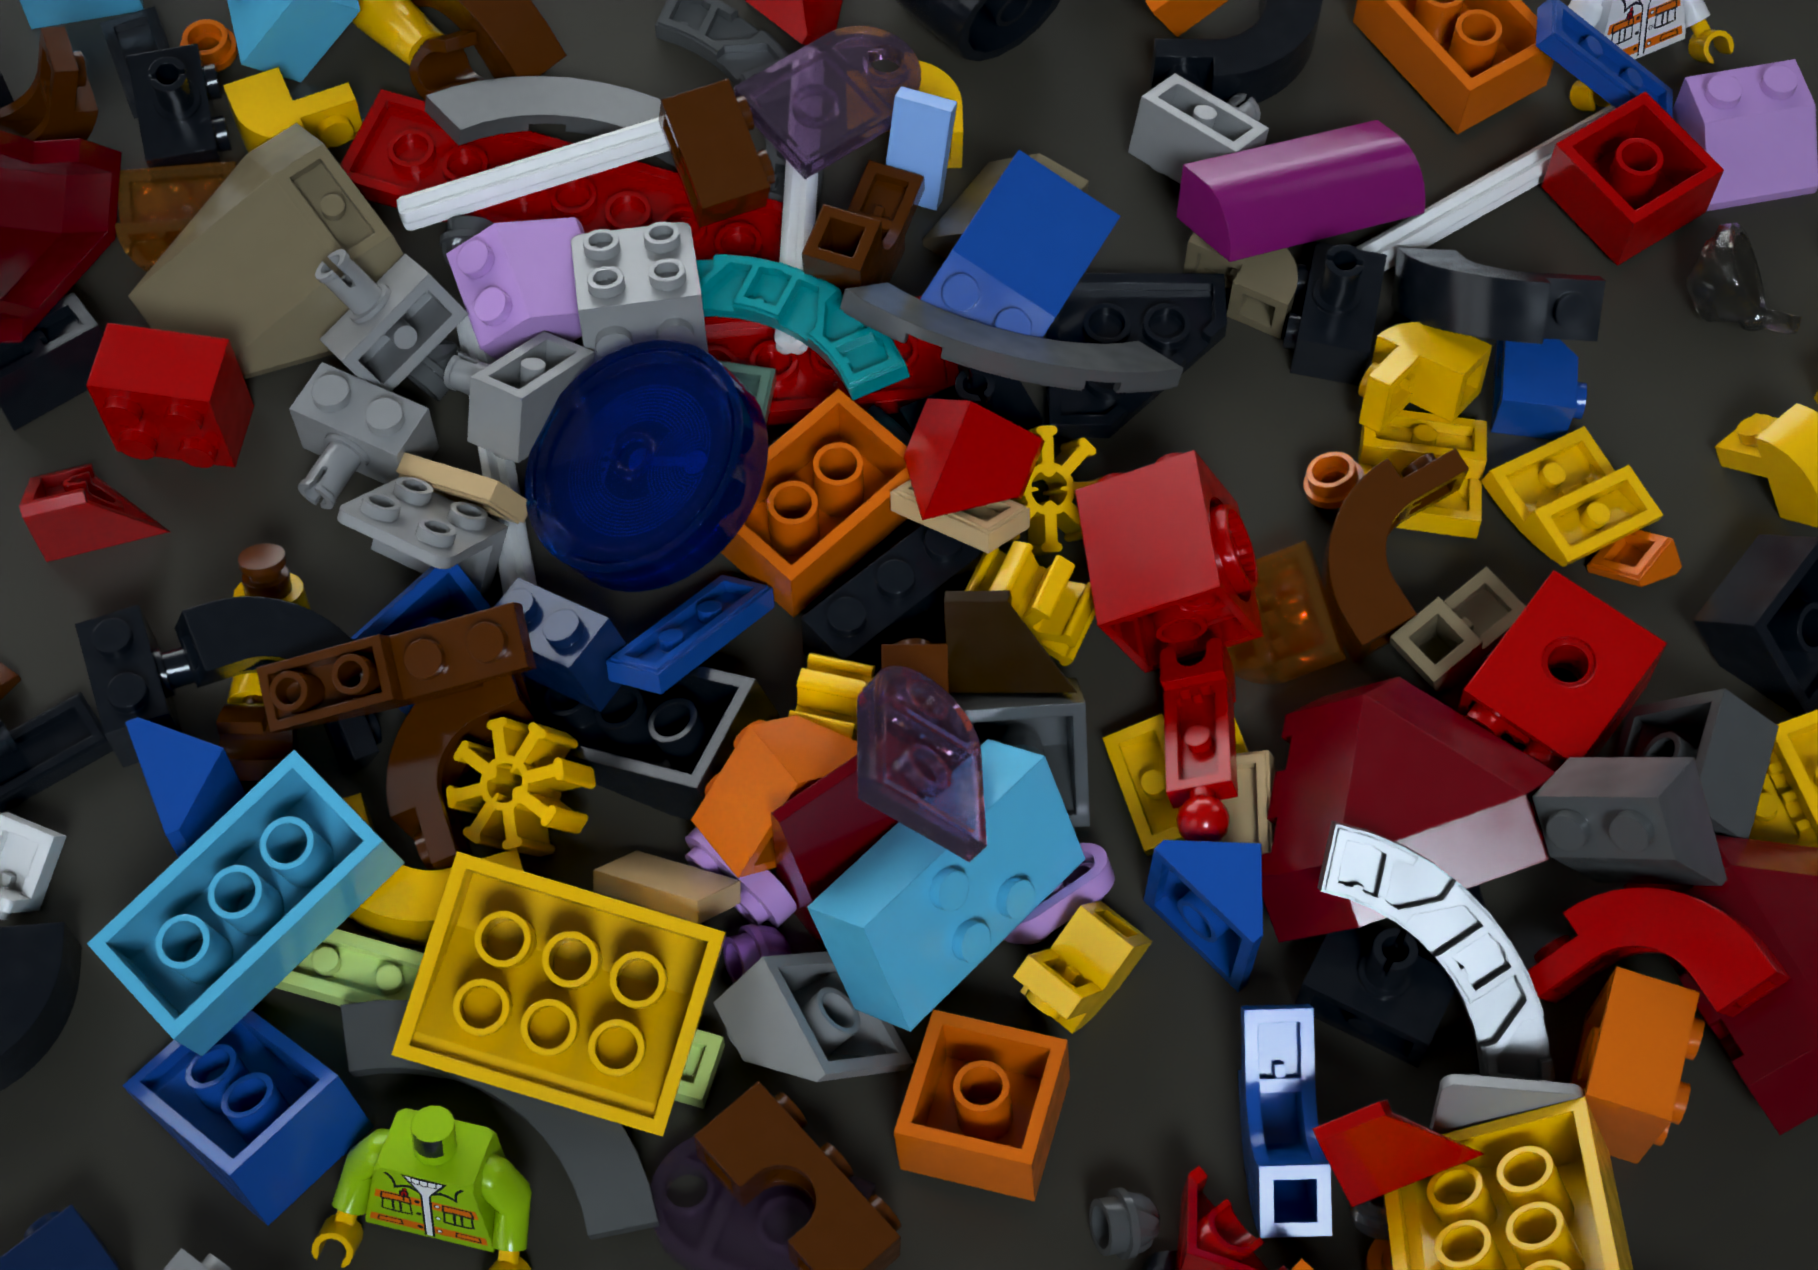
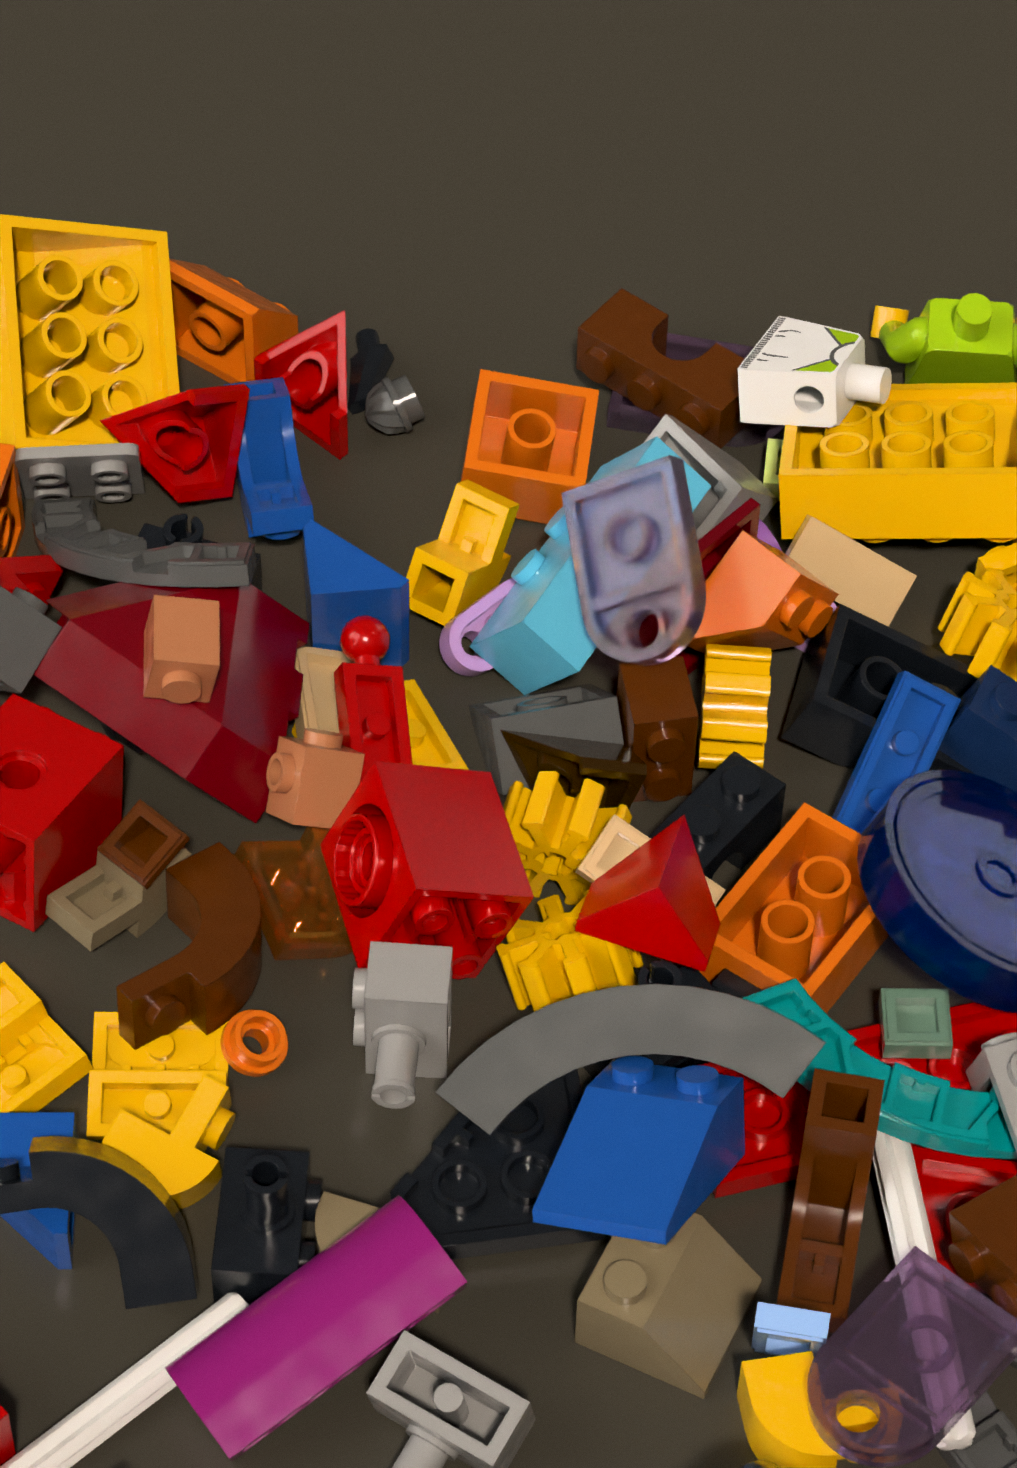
camera: 170 degrees right, 10 degrees down
(647, 1088) = (807, 376): none -> white torso
(1210, 425) = (403, 1017): none -> light grey brick
(1267, 684) = (312, 778): none -> nougat brick
(1408, 733) = (181, 649): none -> nougat brick
(1437, 627) = (143, 844): none -> reddish brown slope

